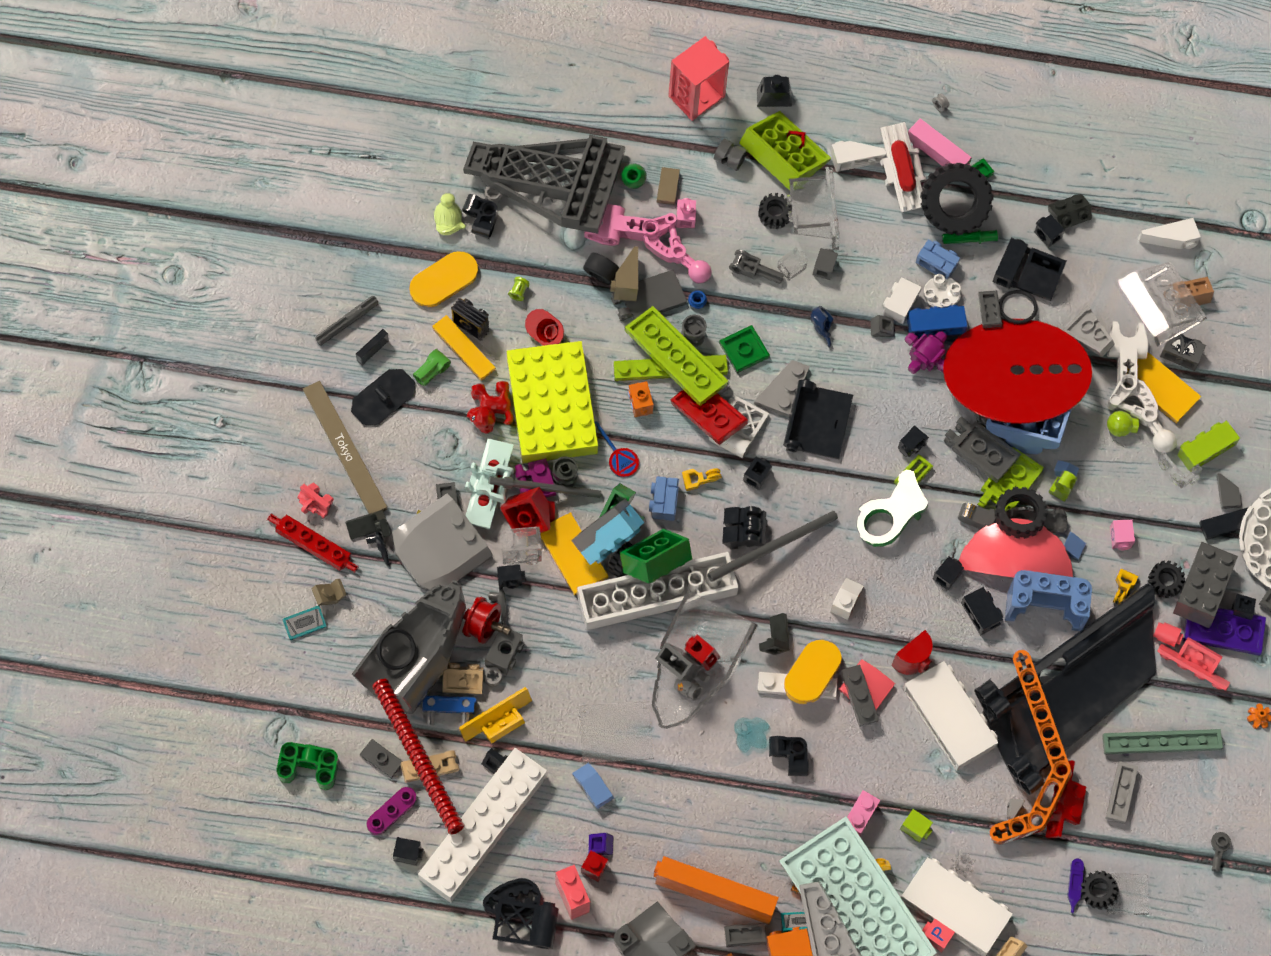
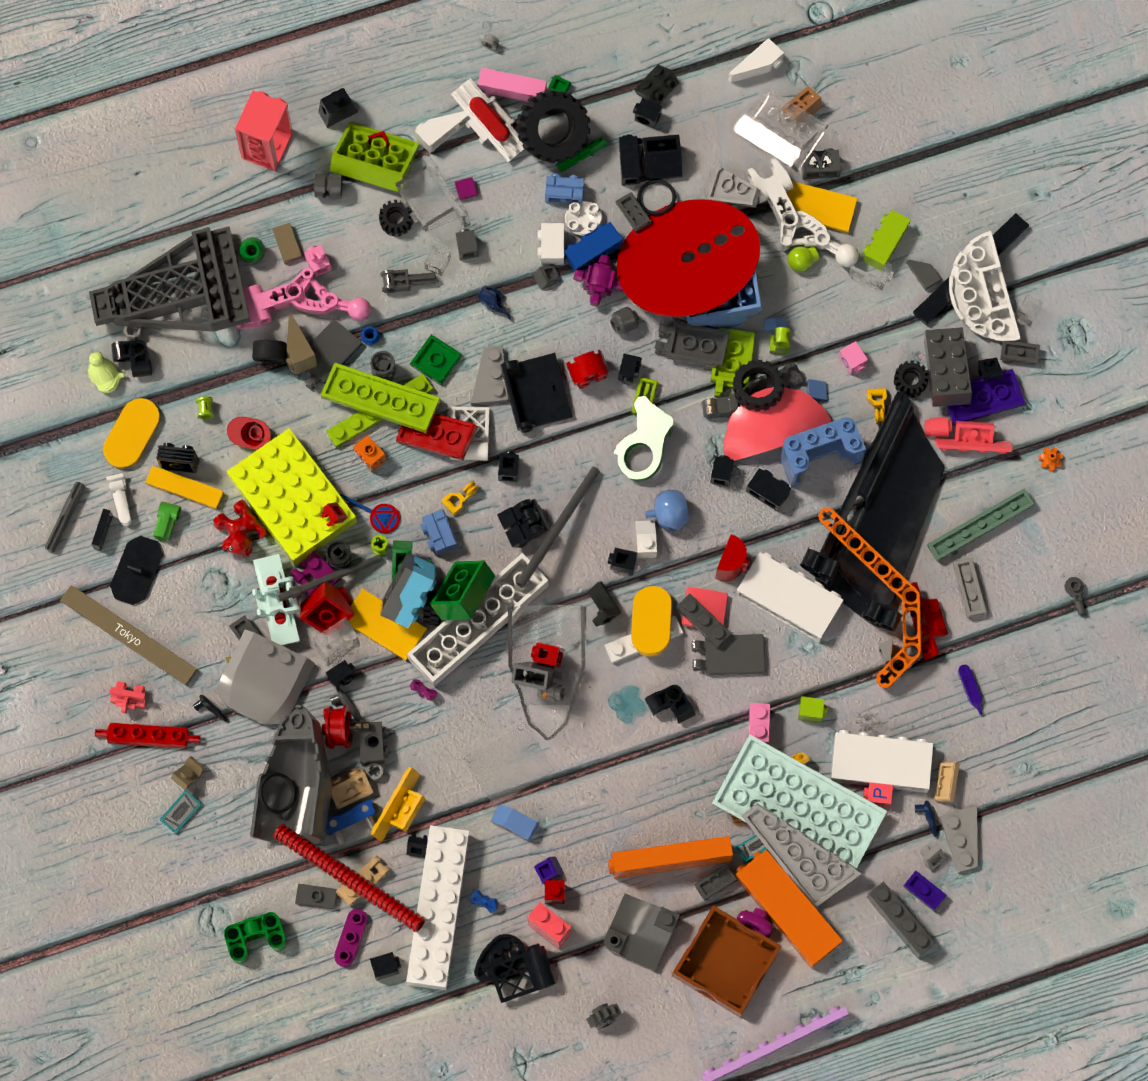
camera: 25 degrees left, 5 degrees up
(368, 524) = (188, 693): pearl dark grey bracket -> none
(407, 316) = (117, 485): none -> white piece
(522, 835) = (490, 904): none -> blue piece
(572, 621) = (430, 694): none -> magenta piece
(580, 433) = (335, 514): none -> red tile
(601, 480) = (384, 542): none -> lime bush
(822, 604) = (622, 554): none -> black brick
(850, 216) = (465, 188): none -> magenta tile
(870, 742) = (734, 656): none -> dark grey tile
(875, 422) = (588, 368): none -> red brick
(882, 583) = (670, 510): none -> medium blue piece
(931, 398) = (624, 320): none -> dark grey head
(1099, 902) = (983, 682): black tyre -> none

